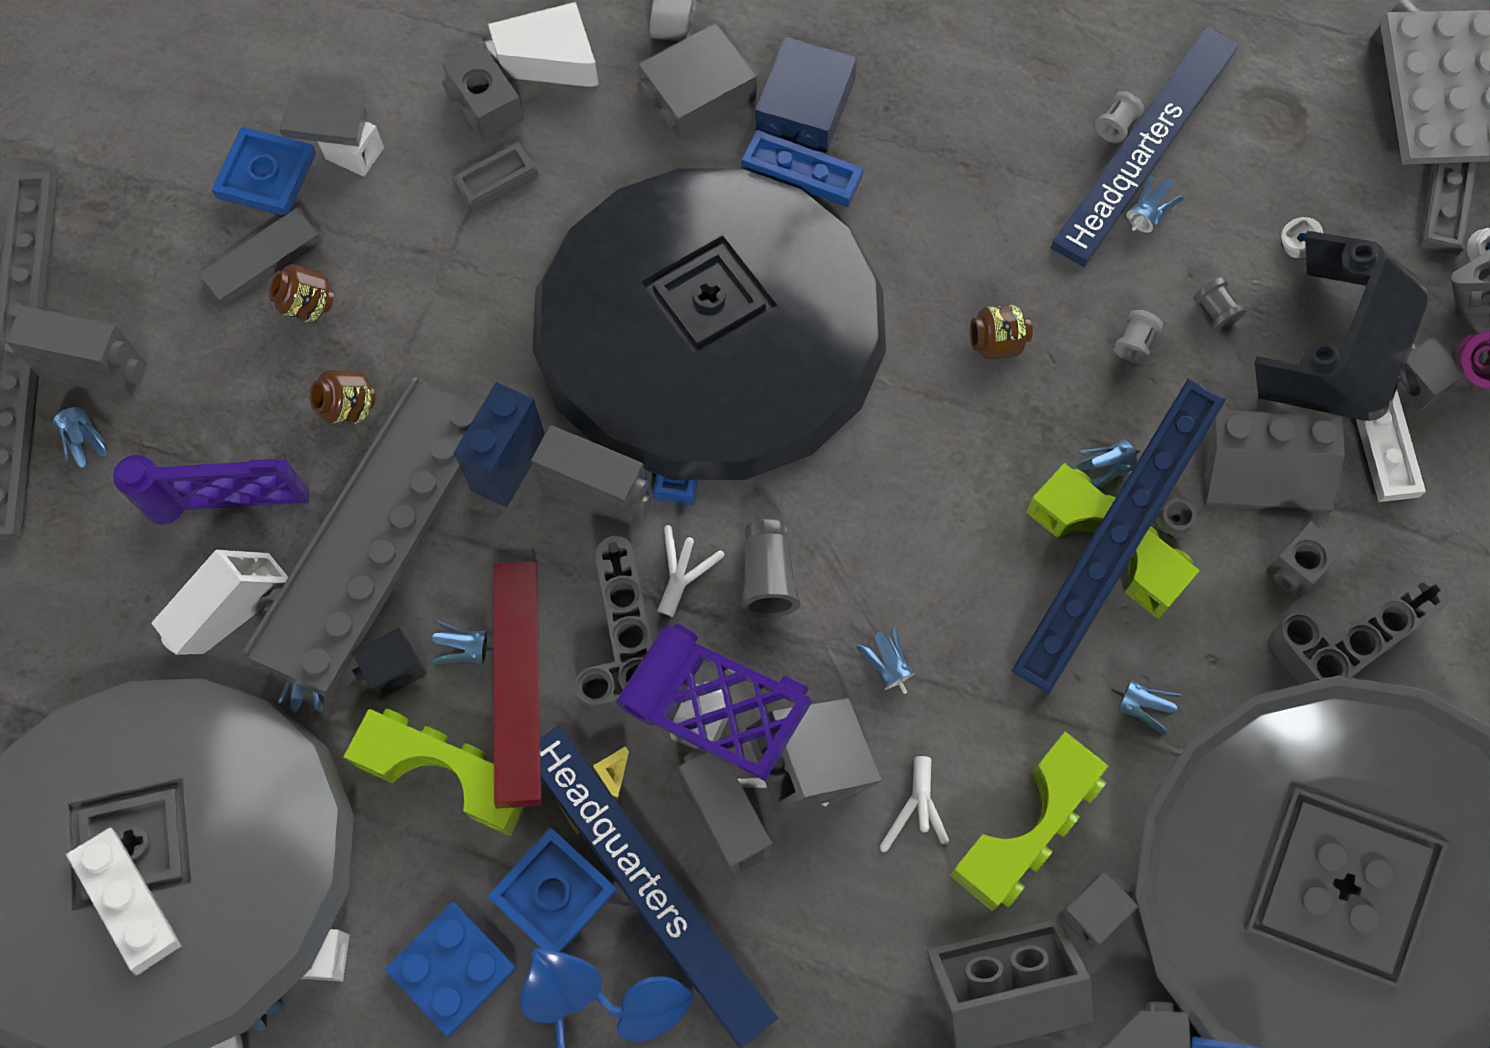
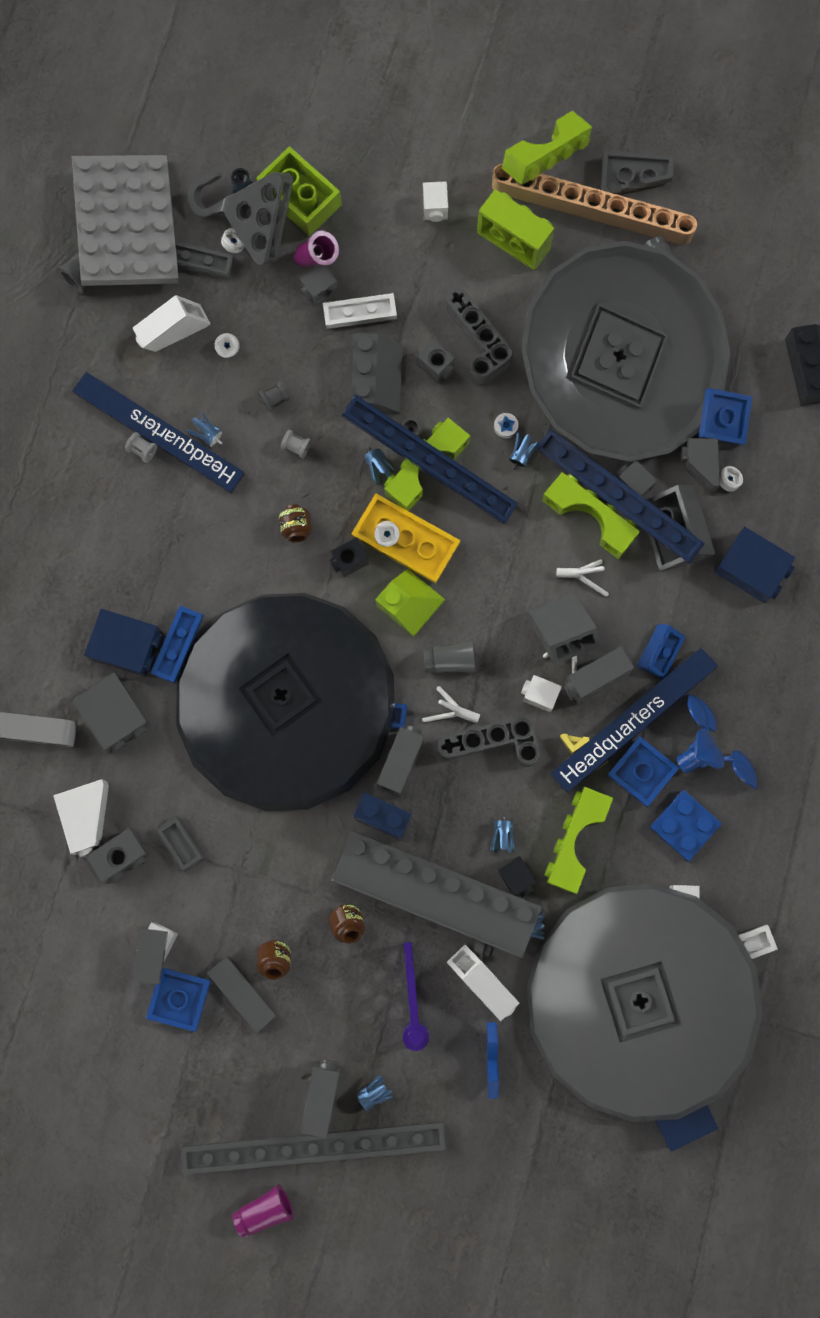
camera: 90 degrees left, 10 degrees up
(115, 609) = (492, 1060): none -> blue tile
(123, 901) = (675, 995): white plate -> none
(516, 687) = (526, 798): dark red tile -> none
(662, 684) = (524, 708): dark purple piece -> none
(774, 944) = (661, 651): none -> blue slope
(870, 506) = (409, 601): none -> lime slope
(896, 666) = (508, 586): flat silver piece -> none
(944, 429) = (351, 547): none -> black brick
(979, 505) = (419, 545): none -> yellow plate
(984, 465) = (386, 533): none -> white tile
(1057, 880) = (620, 496): none -> dark blue tile
(1194, 680) = (506, 425): none -> white tile
(1332, 154) = (170, 324): none -> white slope
(1365, 371) = (329, 317): black windscreen -> none

